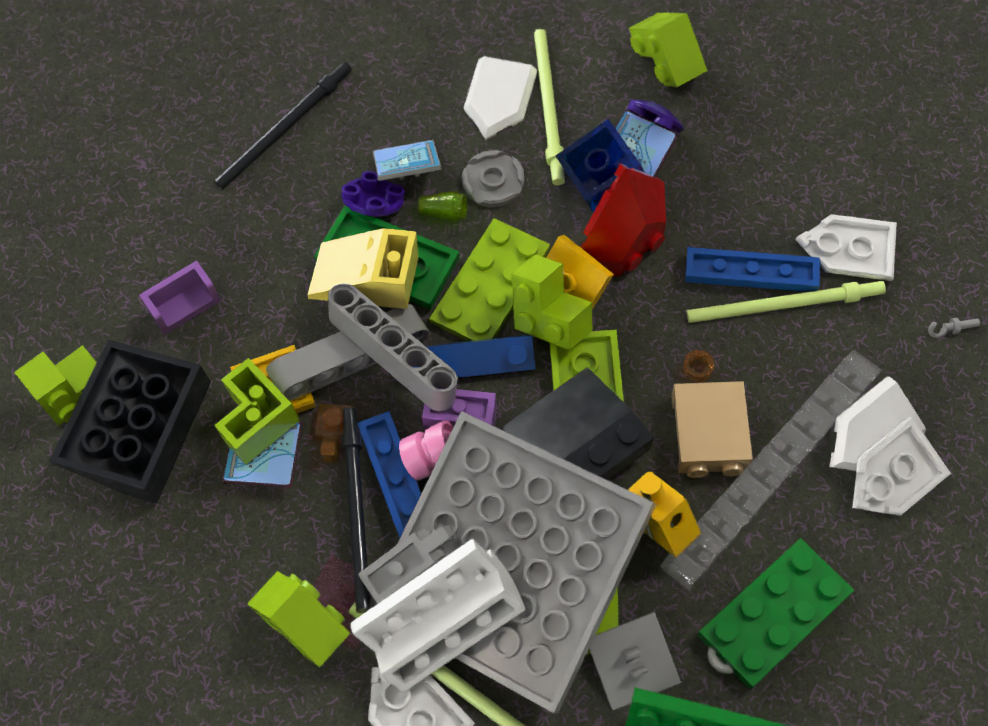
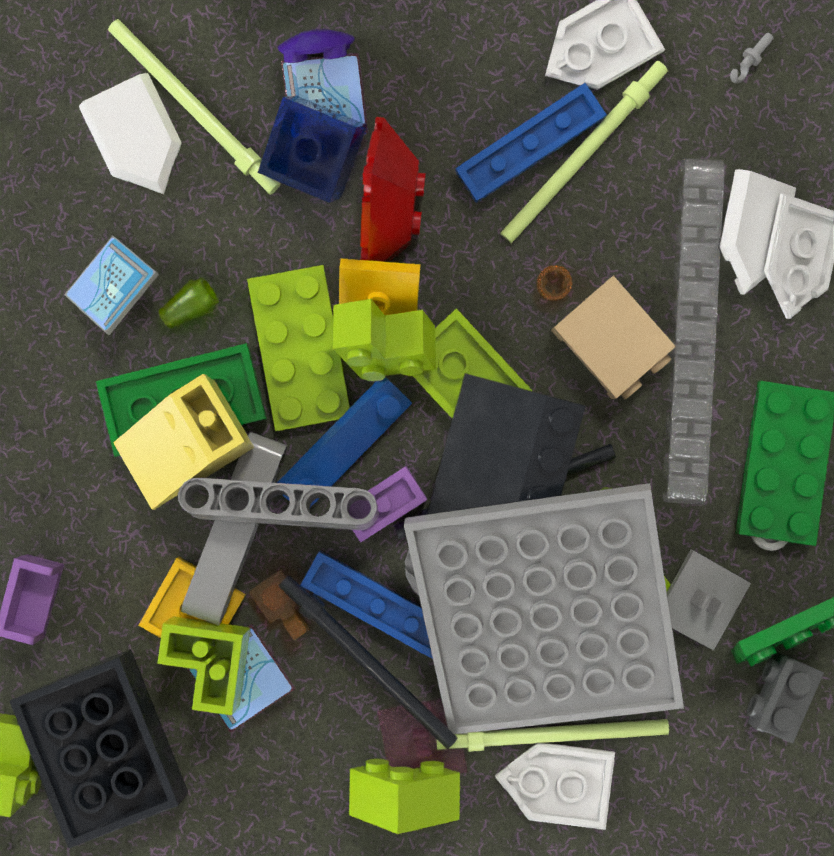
camera: 40 degrees left, 25 degrees up
(371, 196) = (112, 356): dark purple dish -> none
(405, 561) = (461, 684): light grey hinge -> none
(422, 450) = (388, 565): bright pink wheel -> none
(439, 614) = (533, 708): white brick -> none
(501, 182) = (214, 246): light grey tile -> none
(669, 507) = (641, 465): yellow torso -> none

